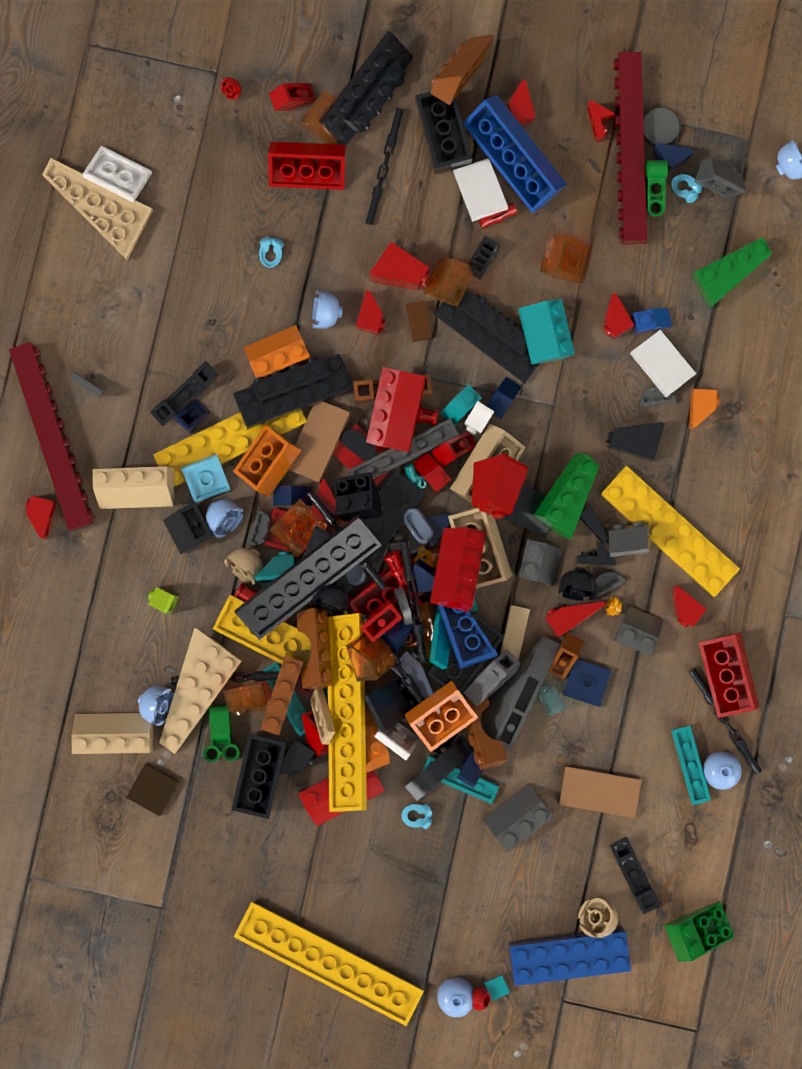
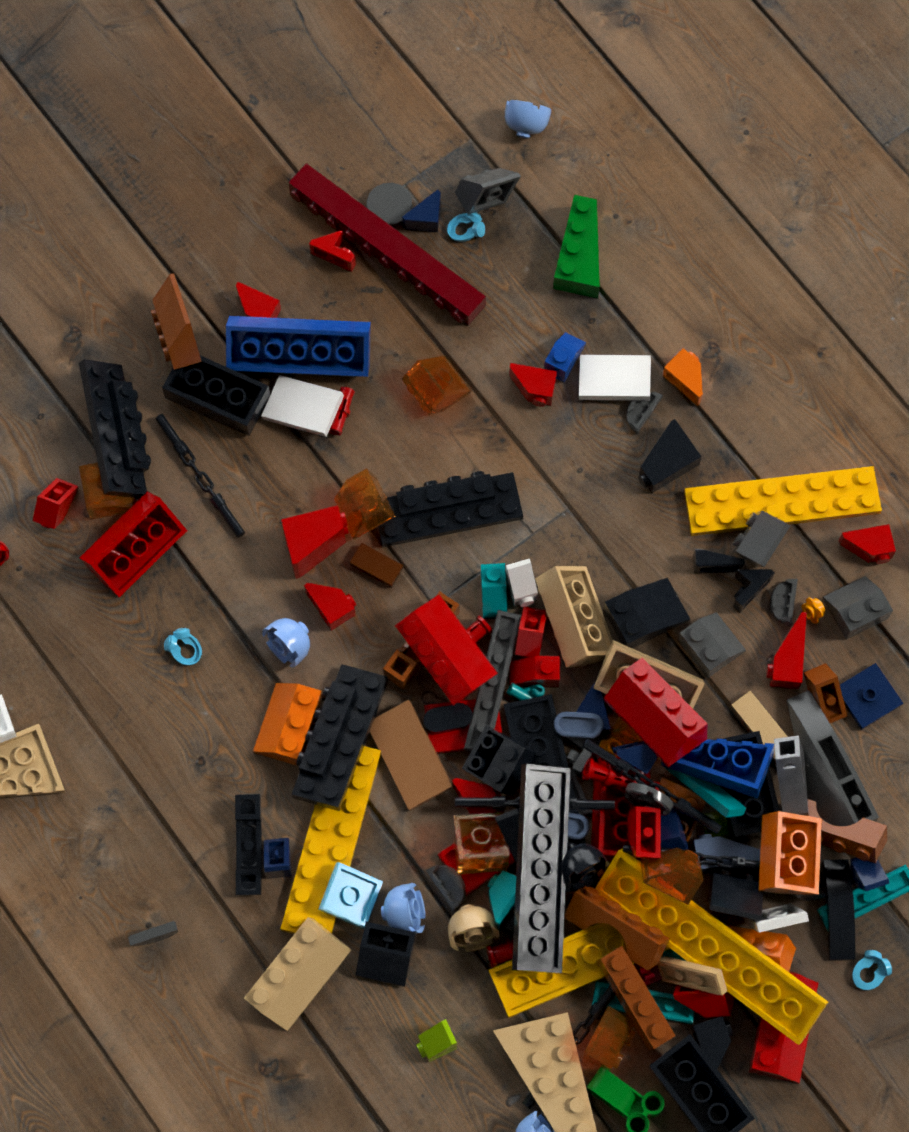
camera: 50 degrees left, 15 degrees down
(40, 514) = (240, 1094): red slope -> none
(51, 436) = (173, 1016): dark red brick -> none
(267, 461) = (386, 819): orange slope -> none
(290, 494) = (439, 827): dark blue slope -> none
(490, 243) = (363, 438): black slope -> none
(497, 484) = (604, 611): red slope -> none
(503, 397) = (520, 544): dark blue slope -> none
(546, 331) = (493, 453): teal slope -> none
(550, 700) = (860, 741): clear light blue slope -> none
(568, 496) = (669, 562): green wedge -> none
(578, 584) = (764, 624): black cylinder -> none
(655, 174) = (431, 239): green piece -> none

